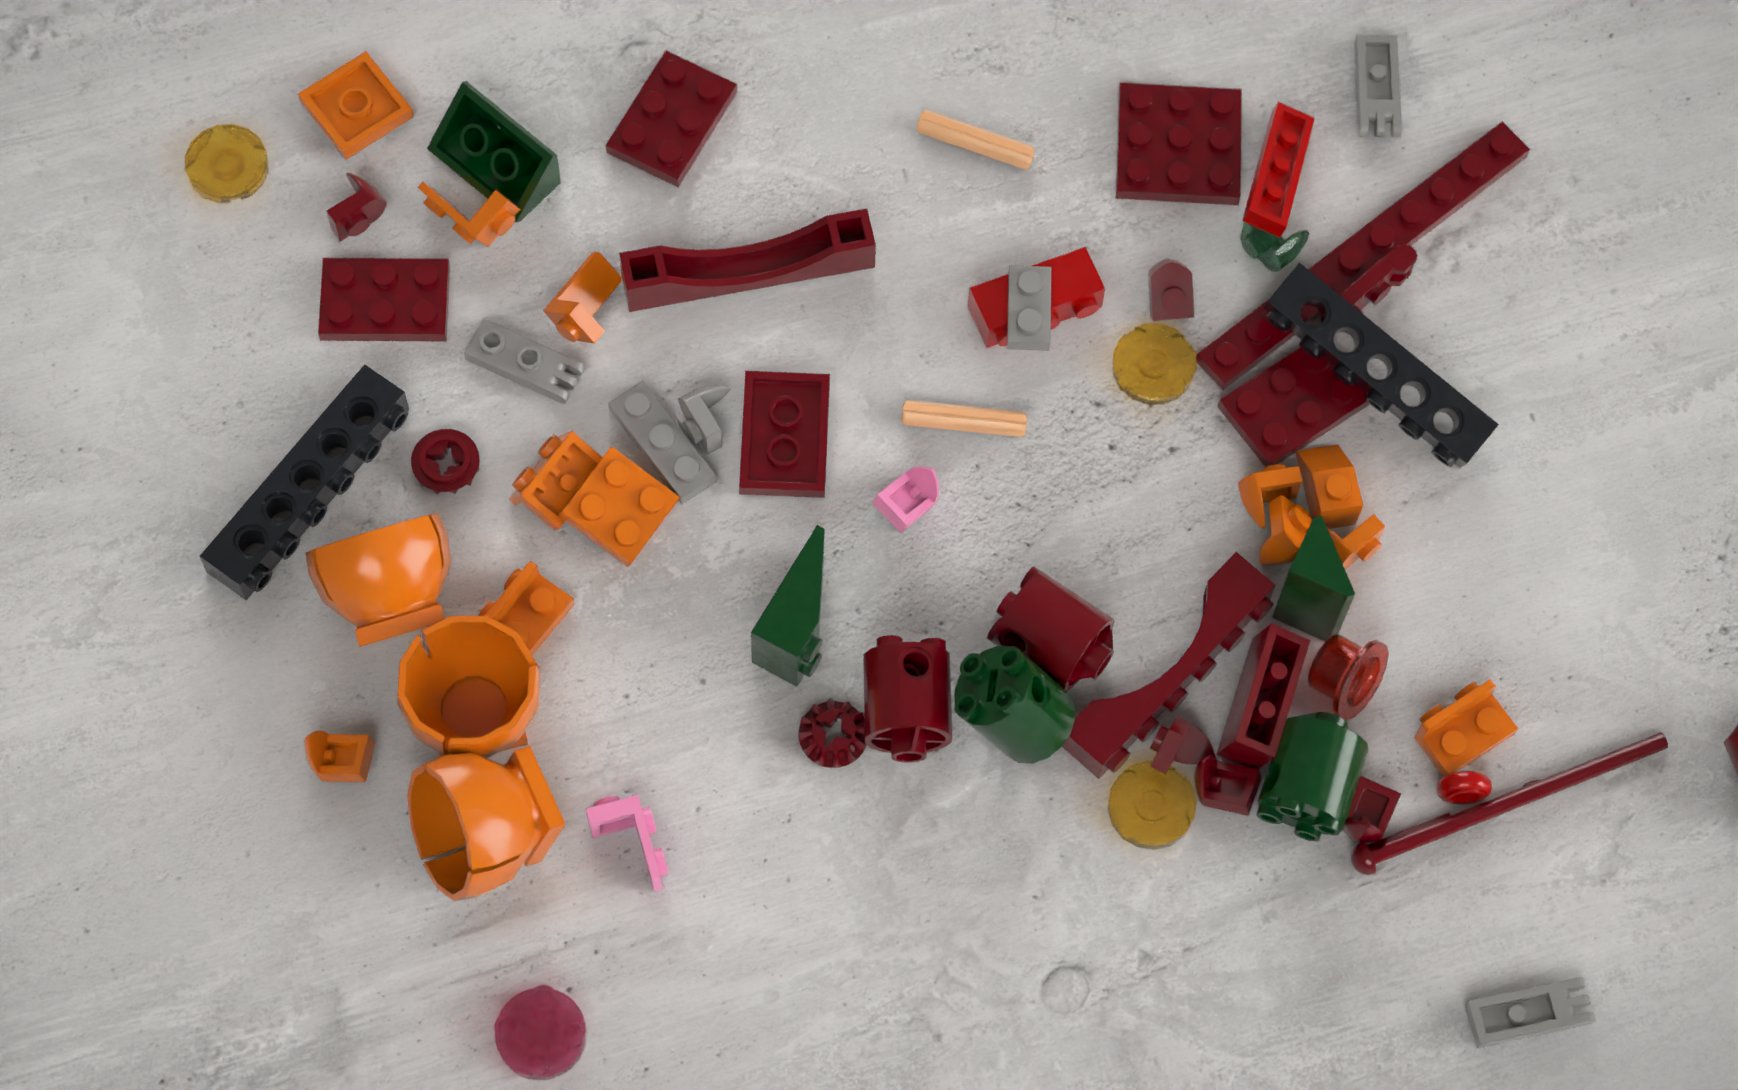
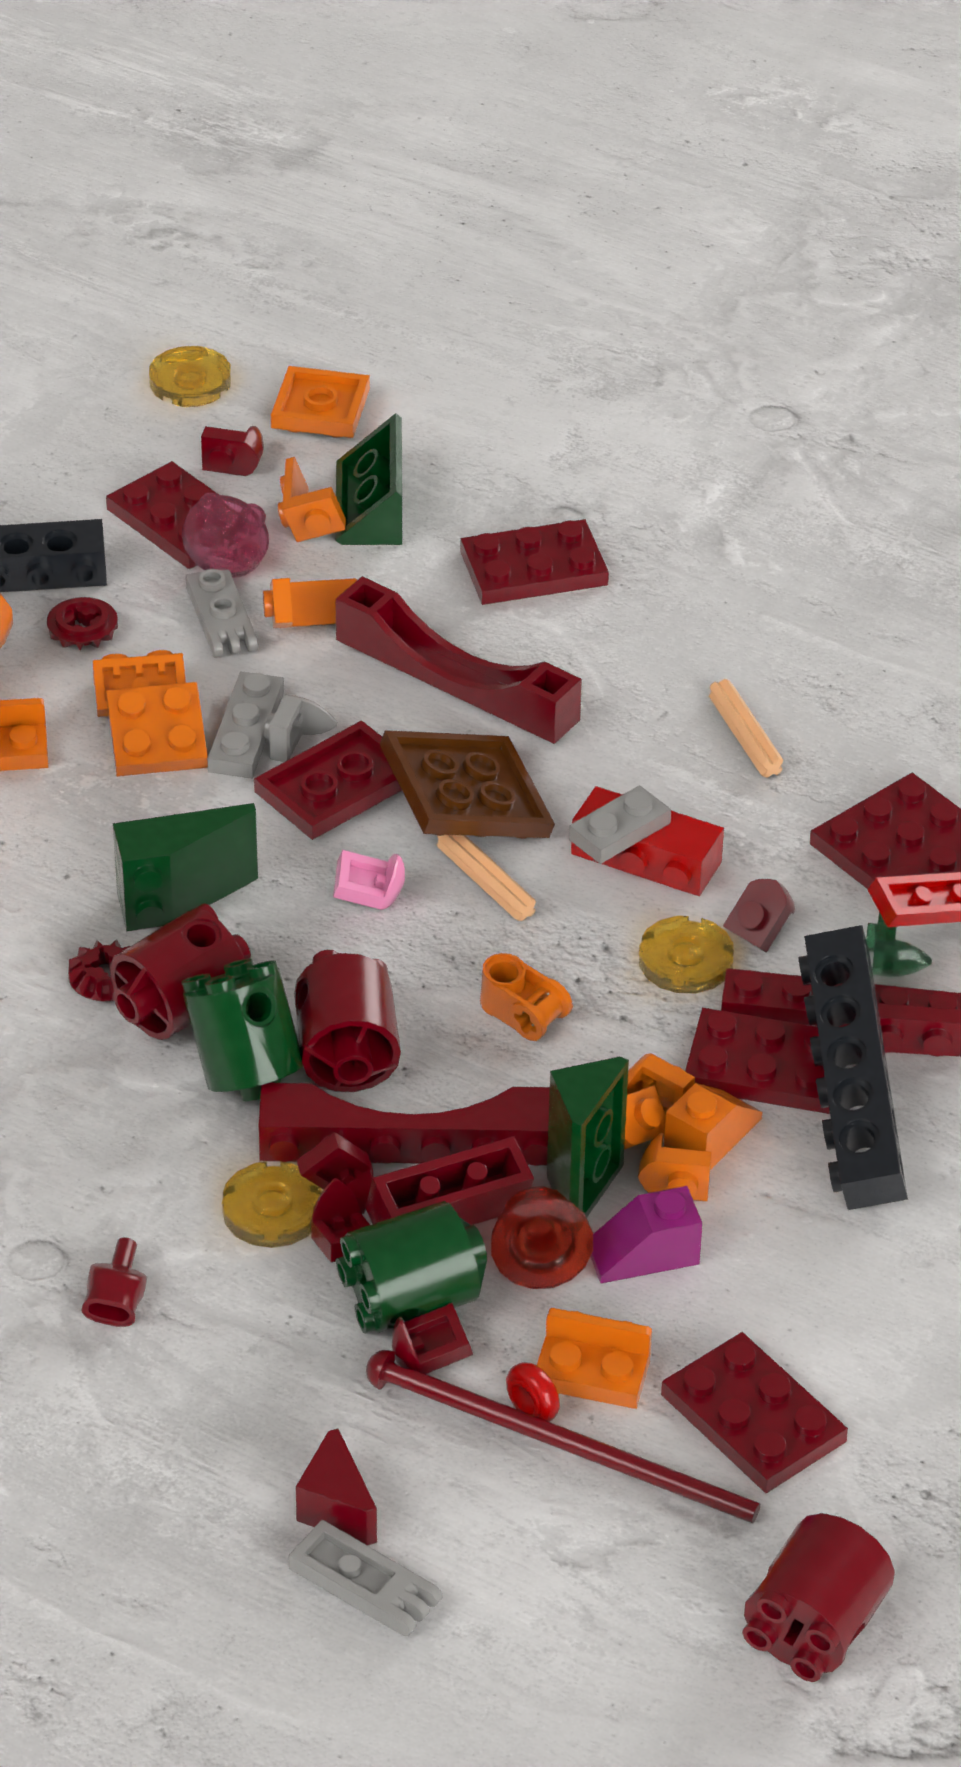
camera: 50 degrees right, 25 degrees down
(455, 294) = (226, 534): none -> clear pink tile
(882, 362) = (466, 784): none -> reddish brown plate
(1120, 496) = (520, 997): none -> orange piece
(1145, 962) = (115, 1288): none -> dark red piece
(1397, 606) = (649, 1236): none -> magenta slope
(1448, 972) = (336, 1492): none -> dark red slope
(1582, 671) = (754, 1412): none -> dark red plate

